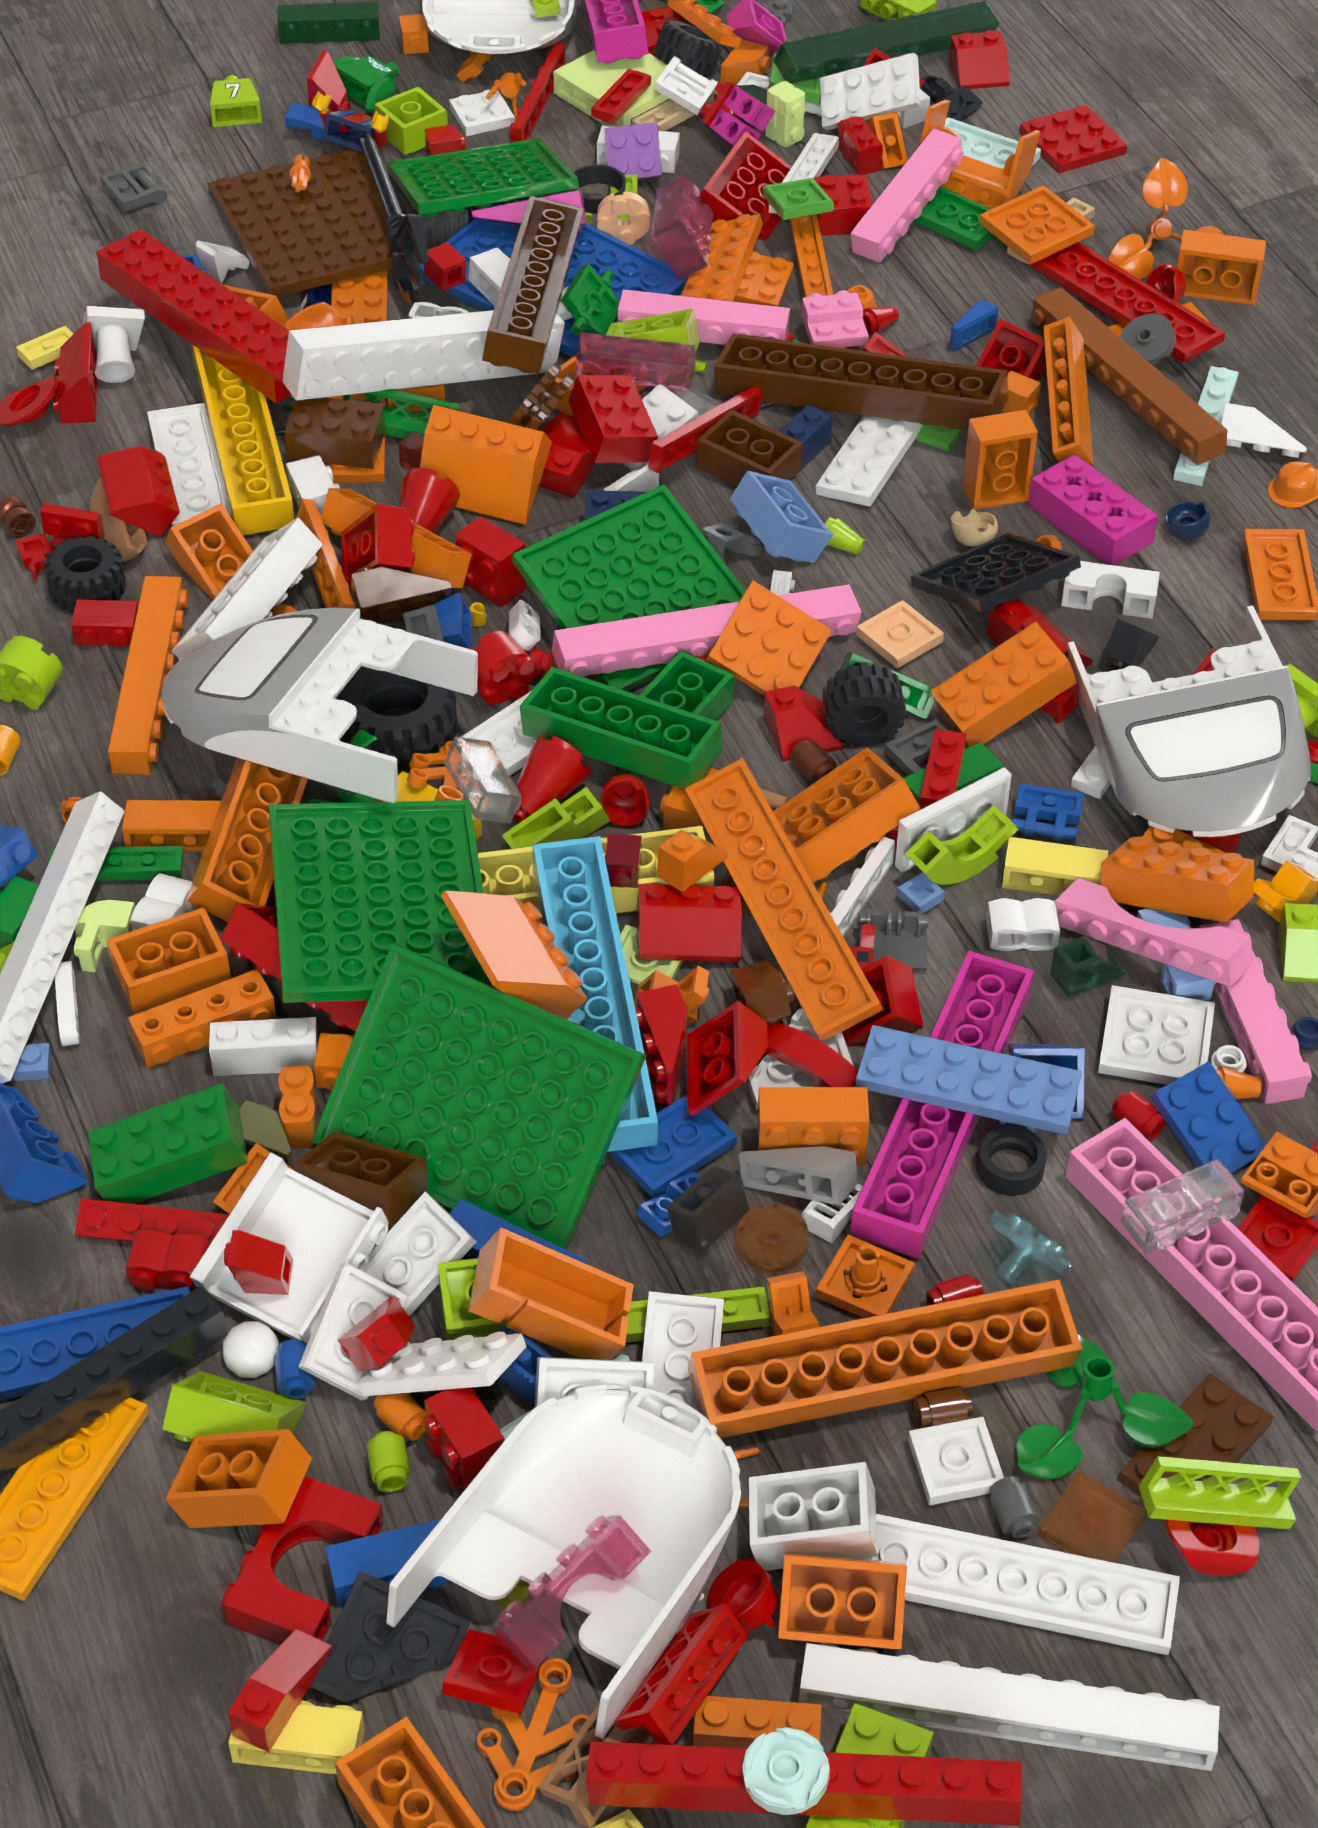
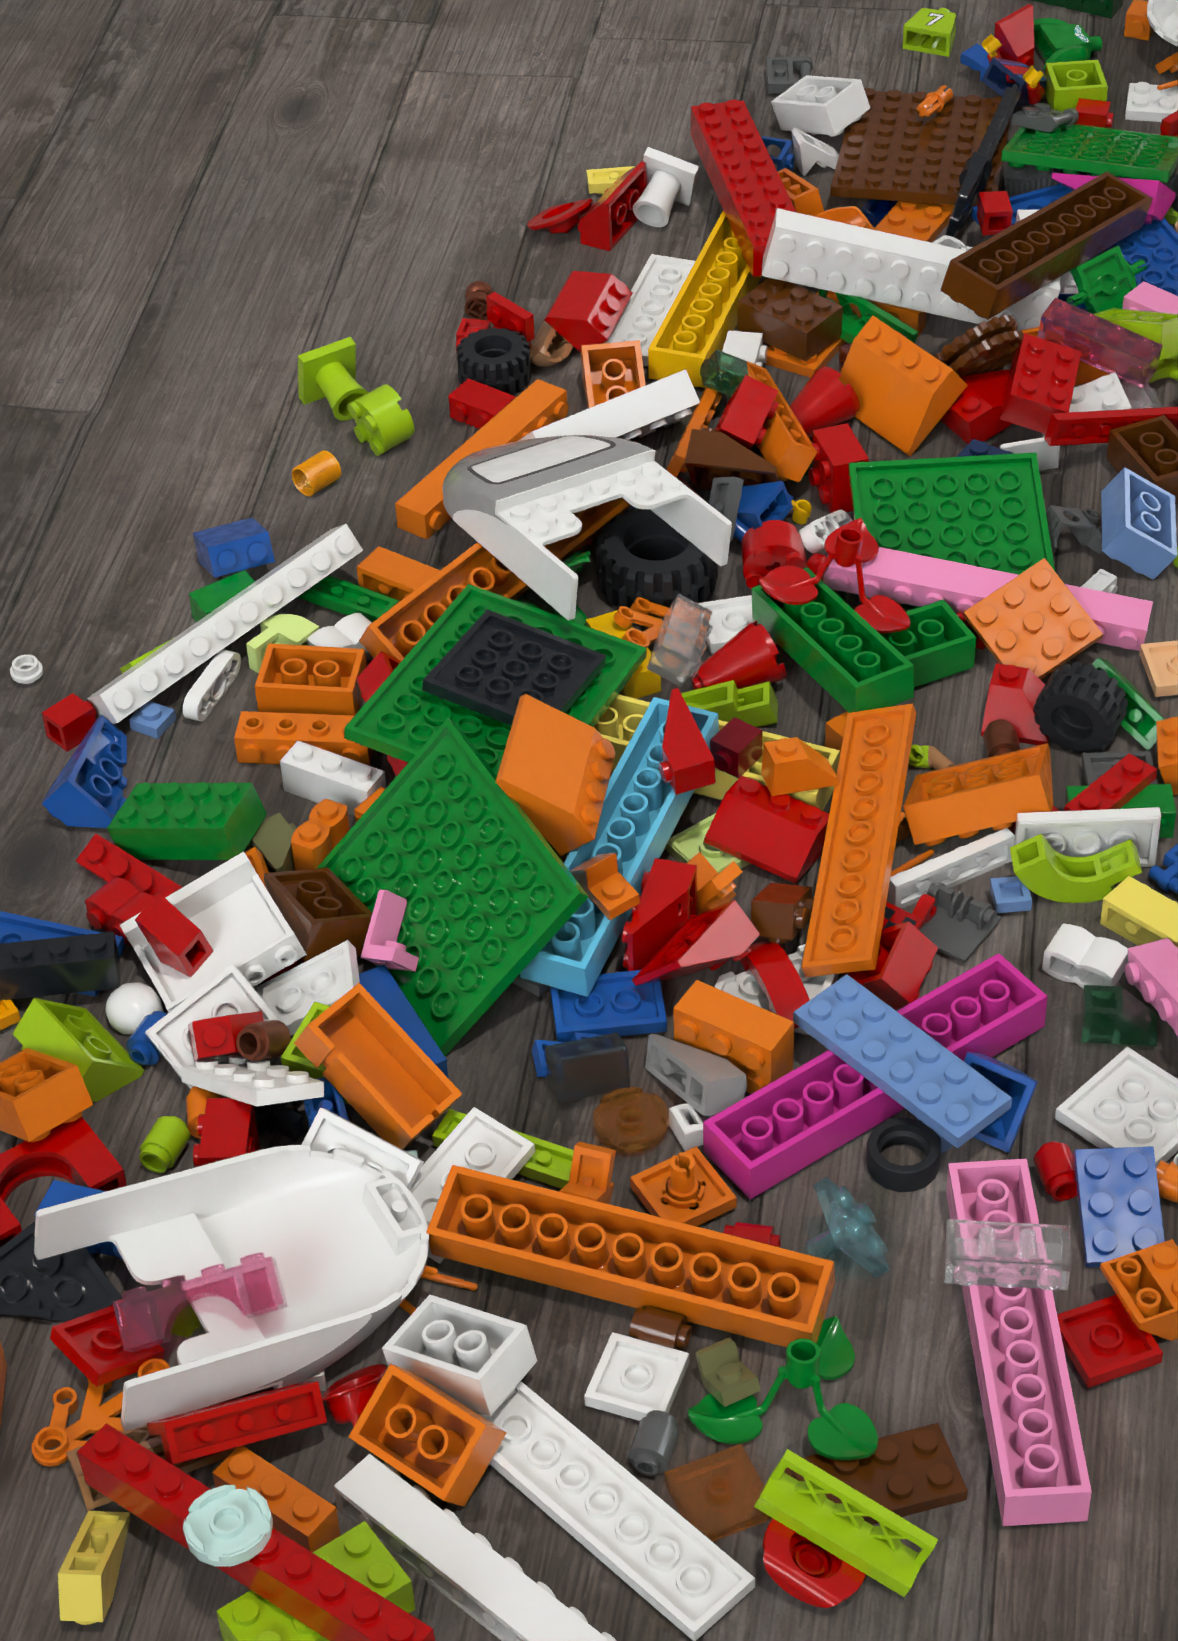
camera: 35 degrees right, 5 degrees down
(198, 209) = (821, 105): none -> white brick
(326, 508) = (723, 372): none -> clear green brick
(387, 873) = (509, 659): none -> black plate
(409, 159) = (1043, 118): none -> dark grey plate
(422, 1321) = (263, 1040): none -> copper brick
(442, 1182) = (380, 942): none -> bright pink bracket
(592, 633) = (848, 546): none -> red plant
(607, 885) = (685, 753): none -> red slope
(615, 1025) = (606, 885): none -> orange slope
(625, 800) = (799, 707): red hair -> none
(1024, 1420) = (725, 1374): none -> olive bracket

